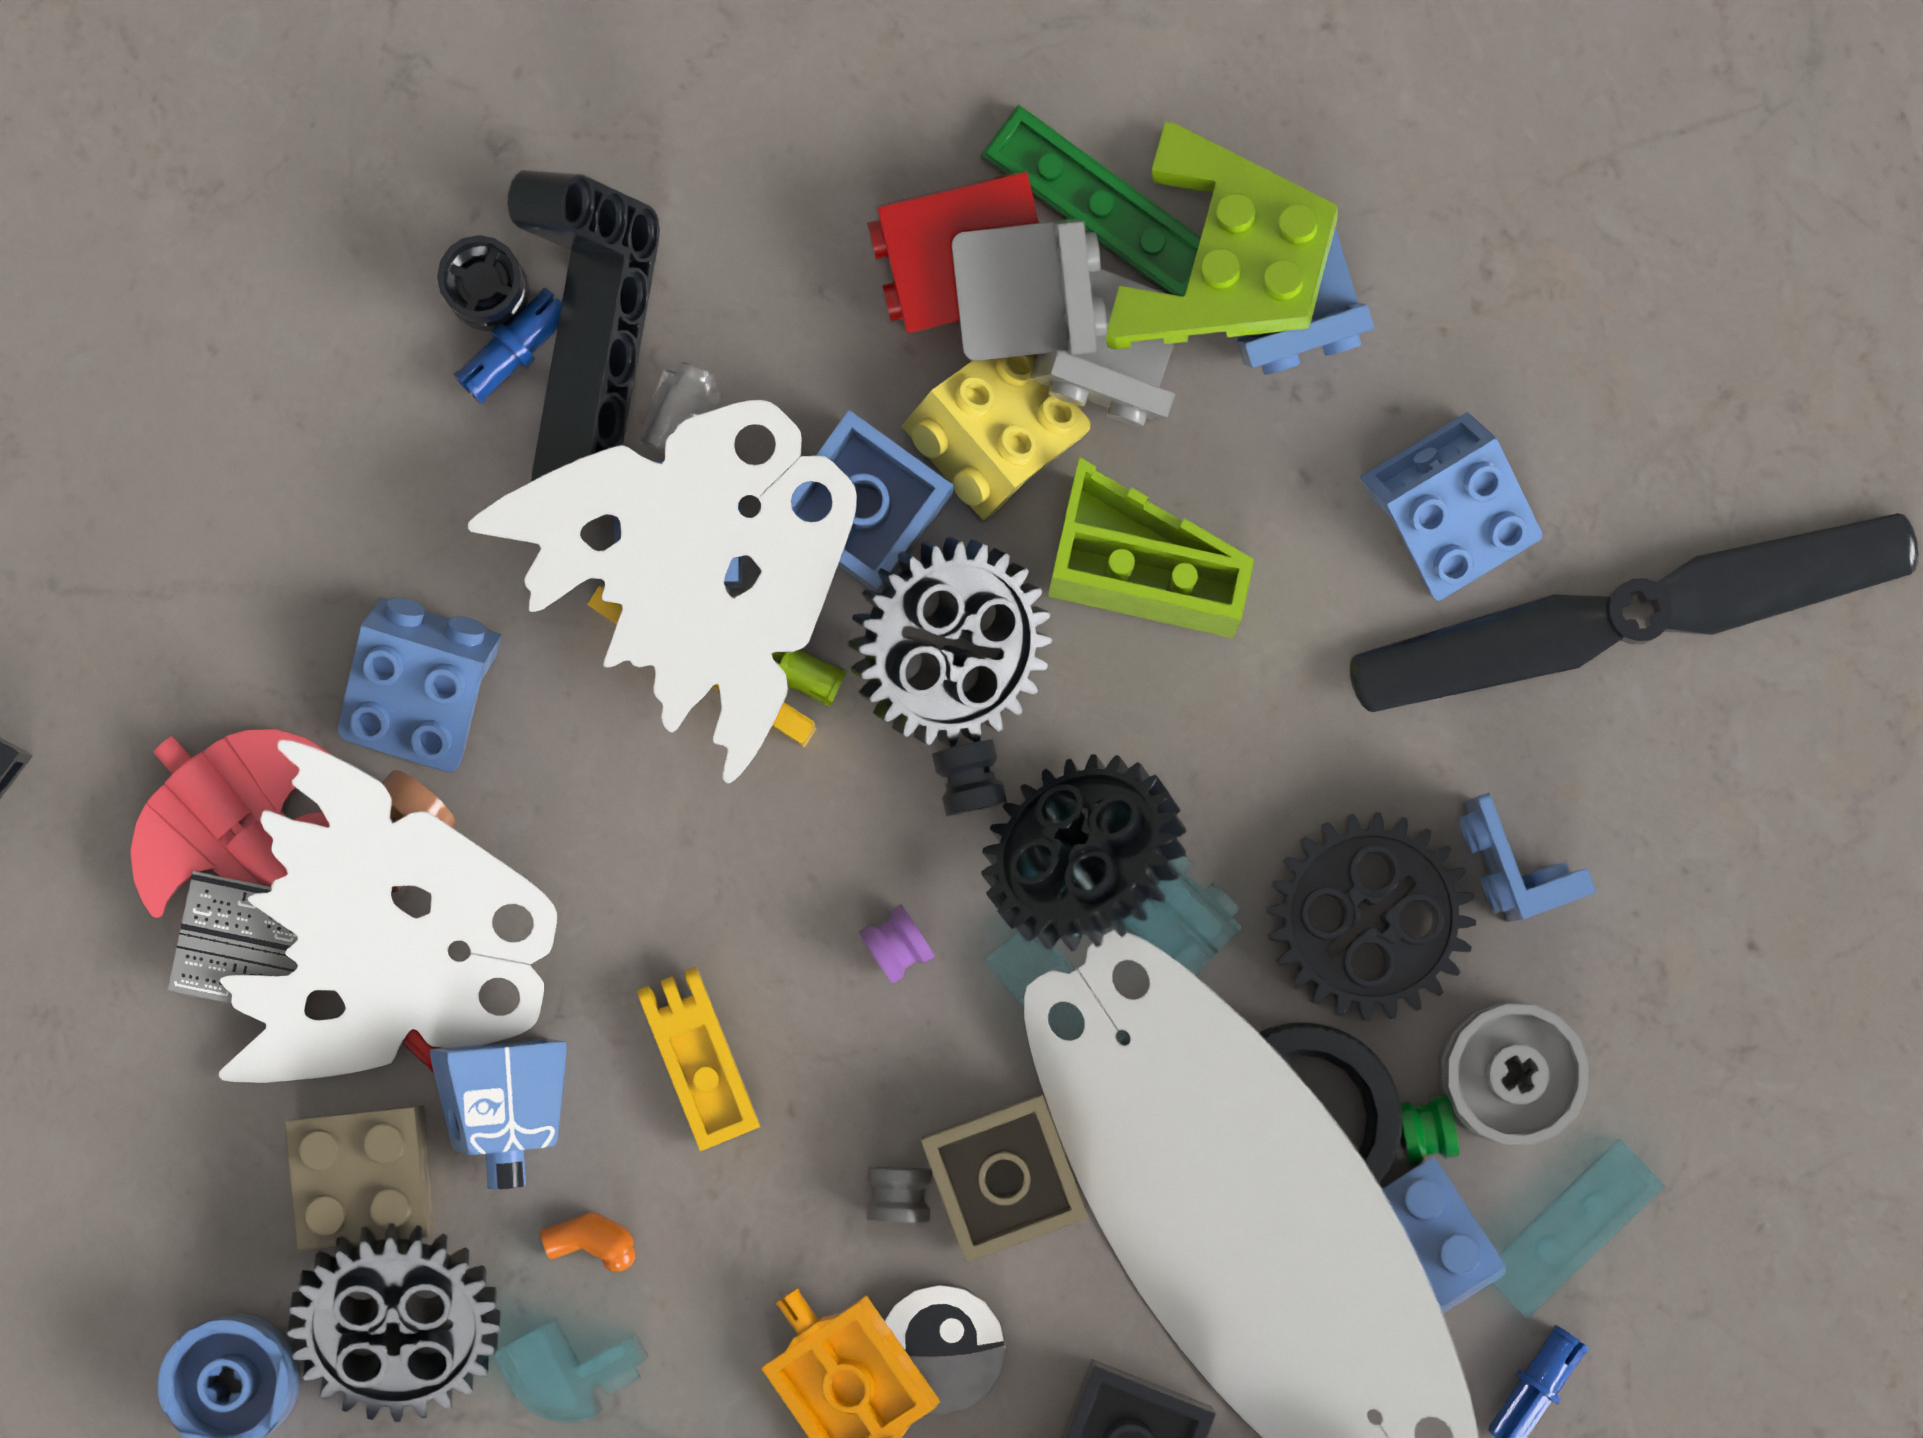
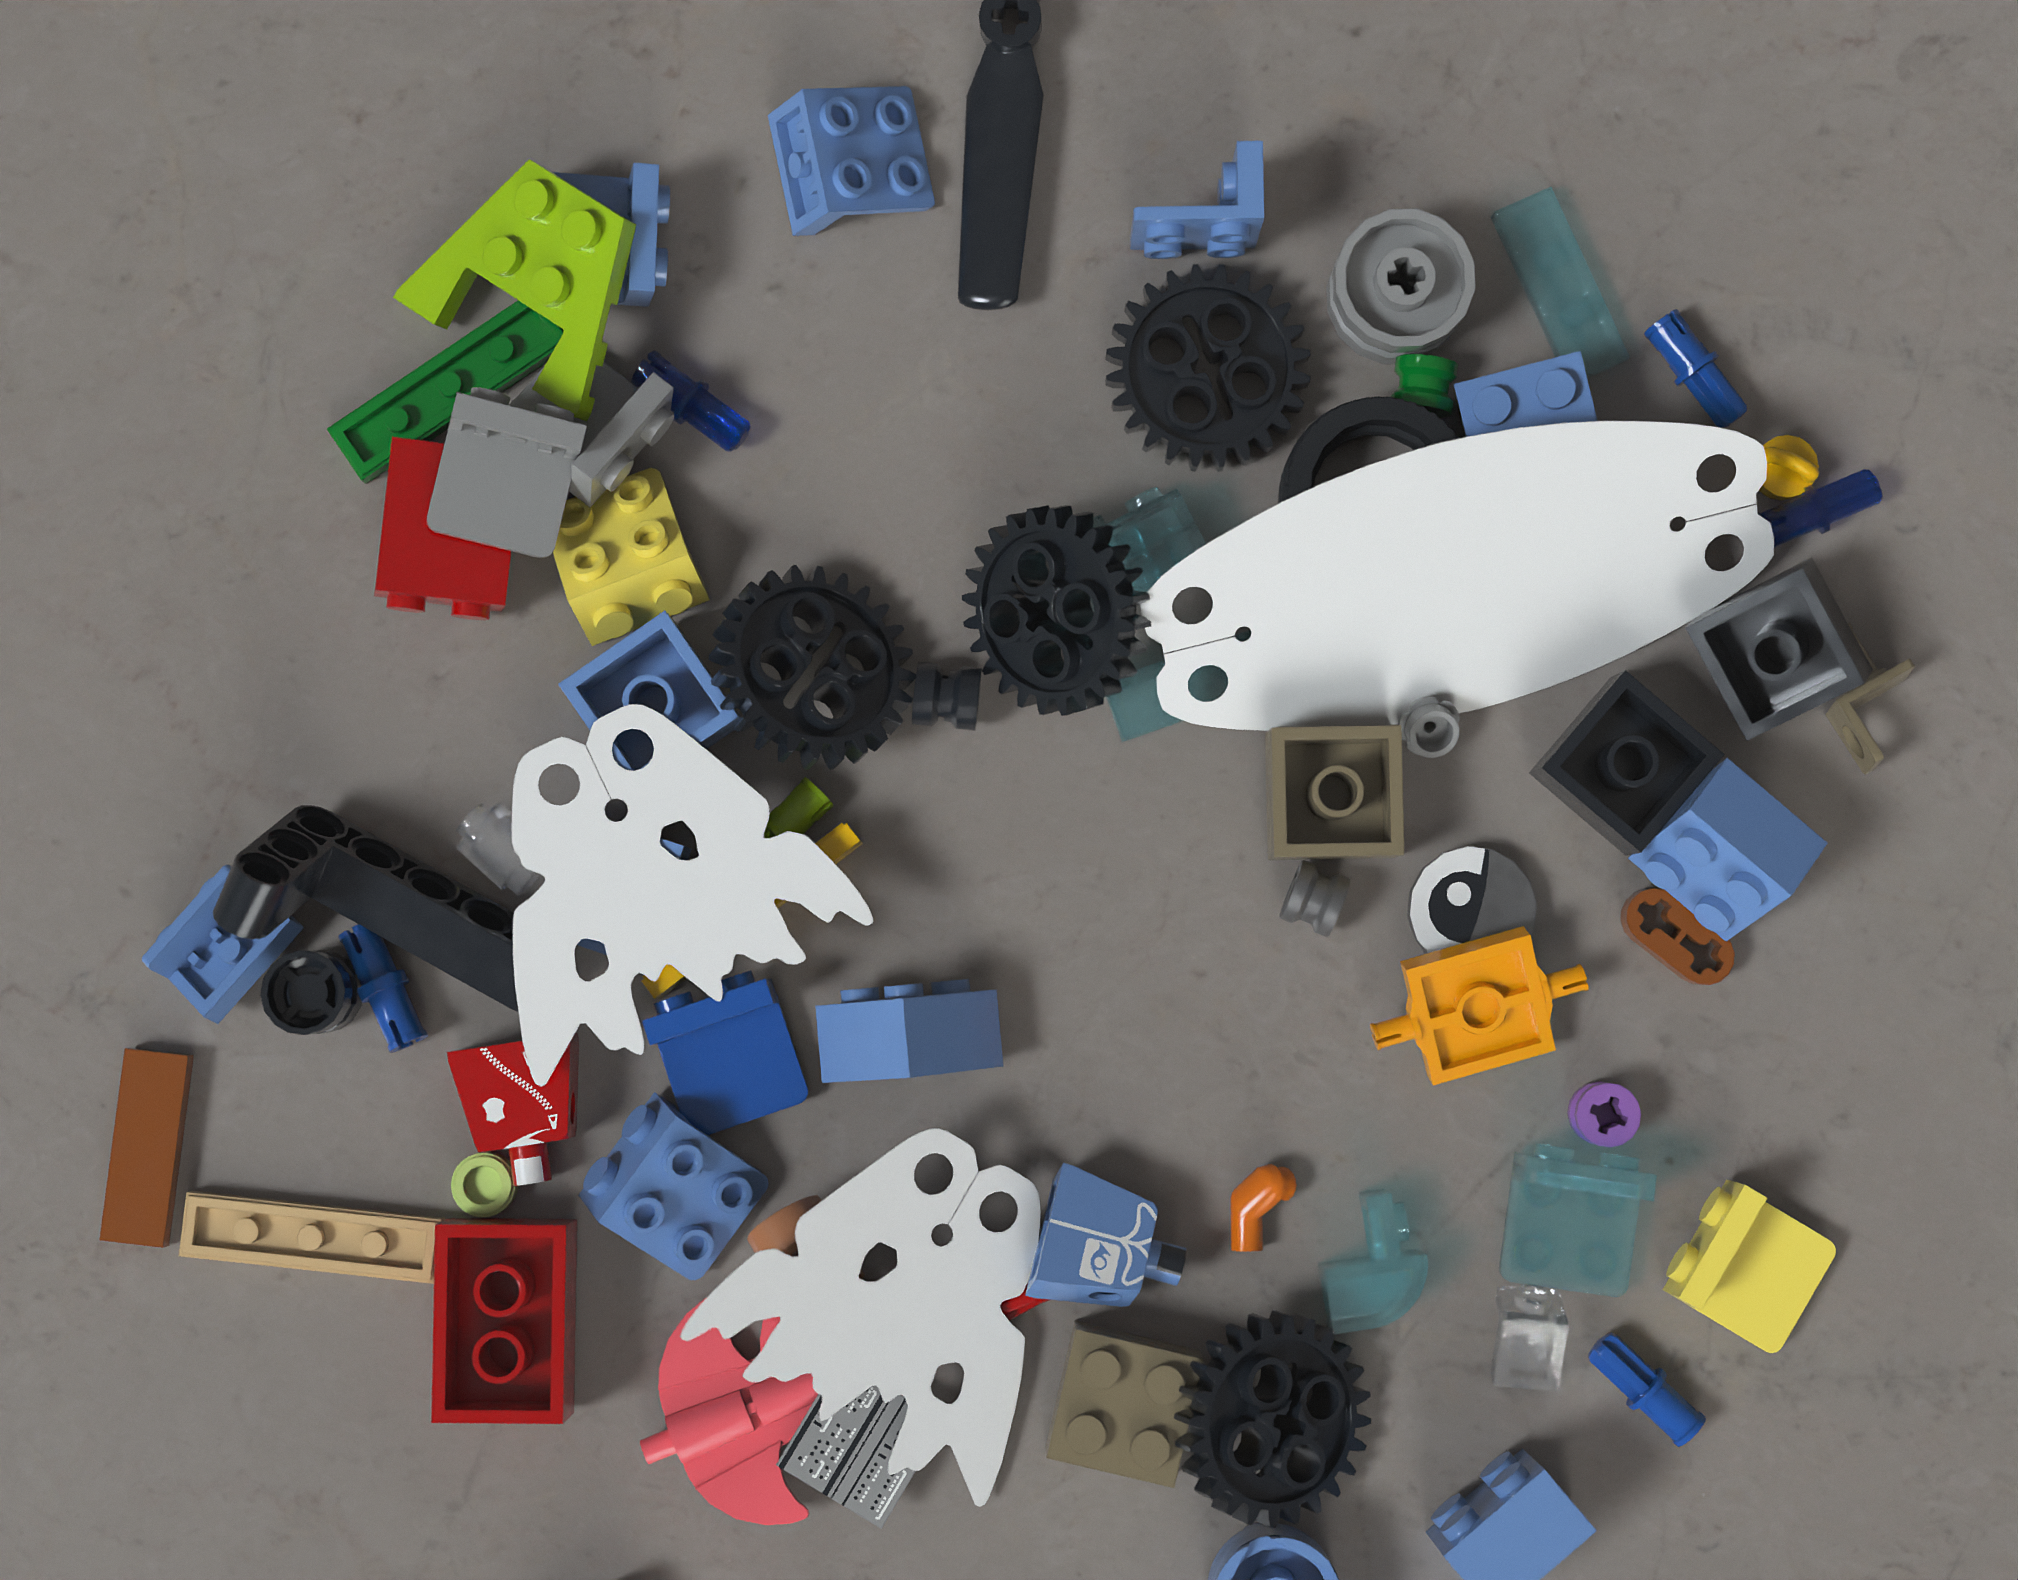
camera: 70 degrees left, 0 degrees up
(240, 571) = (504, 1321): none -> red brick
(257, 363) = (309, 1236): none -> tan tile
(287, 180) = (146, 1147): none -> dark orange tile
(361, 506) = (483, 1184): none -> yellowish green tile
(436, 509) = (511, 1110): none -> red torso
(478, 174) = (209, 962): none -> medium blue bracket
(557, 693) = (729, 1055): none -> blue bracket
(638, 854) = (908, 1032): none -> medium blue brick
(699, 1062) = (1125, 1043): yellow hinge -> none
(897, 944) = (1079, 818): medium lavender wheel -> none
(1088, 1255) = (1440, 737): none -> light grey plate
(1144, 561) = (801, 458): lime wedge -> none
(1165, 440) = (695, 404): none -> clear blue axle

